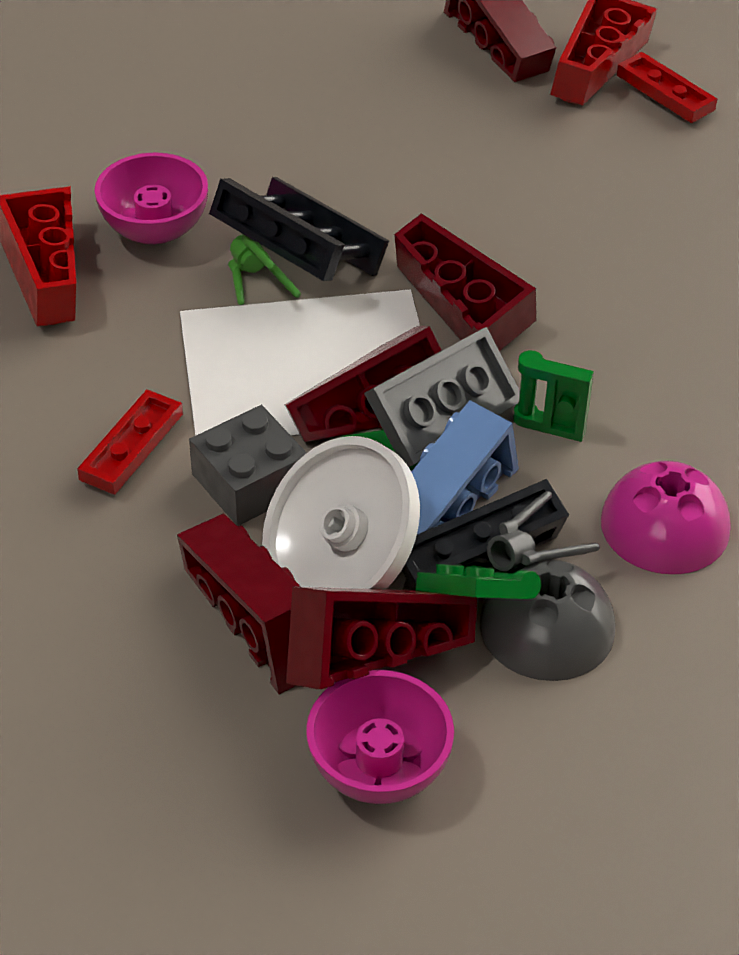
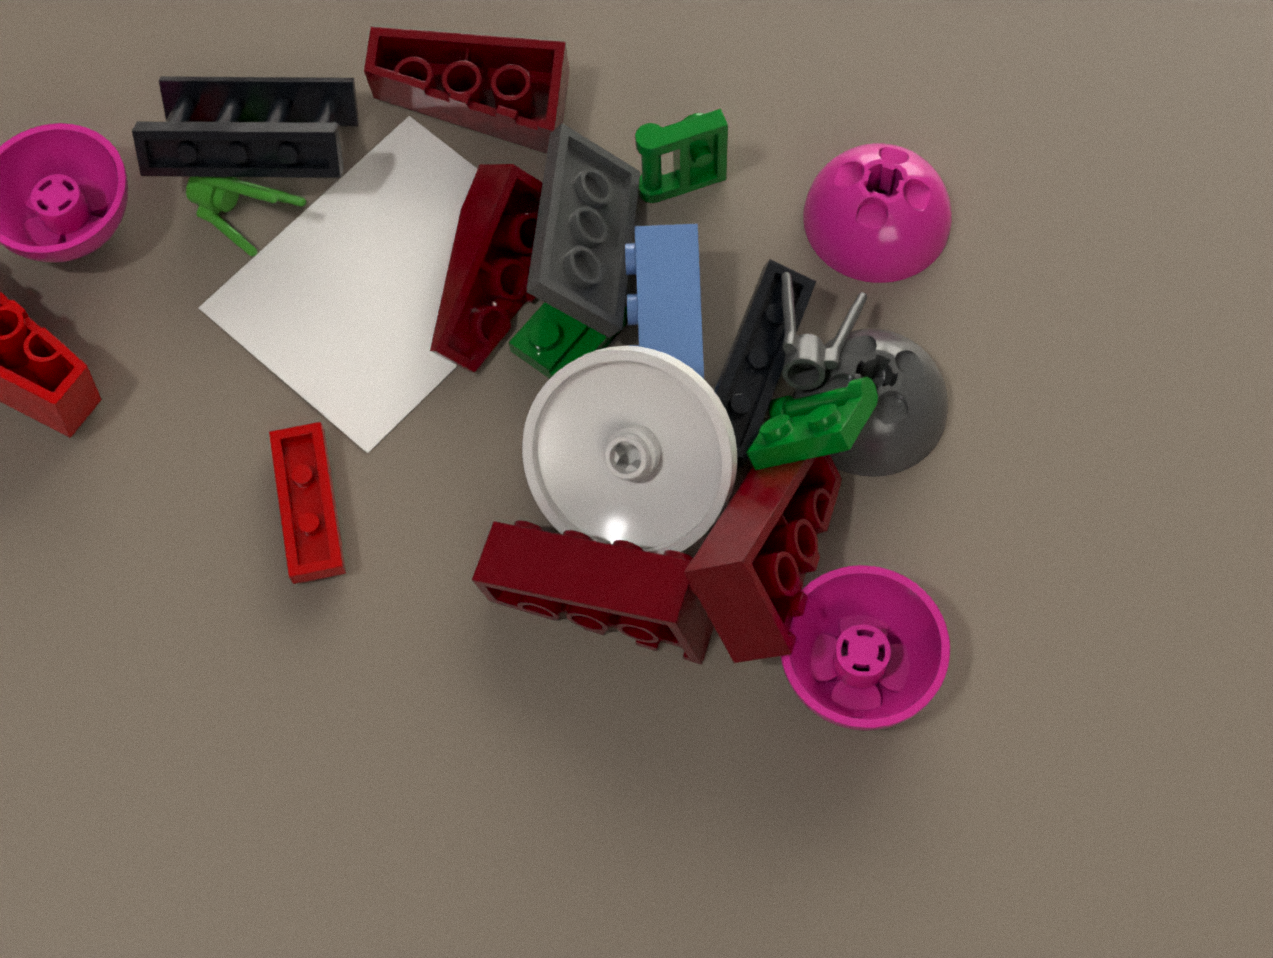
camera: 35 degrees left, 20 degrees up
(244, 462) = (455, 442): dark grey brick -> none

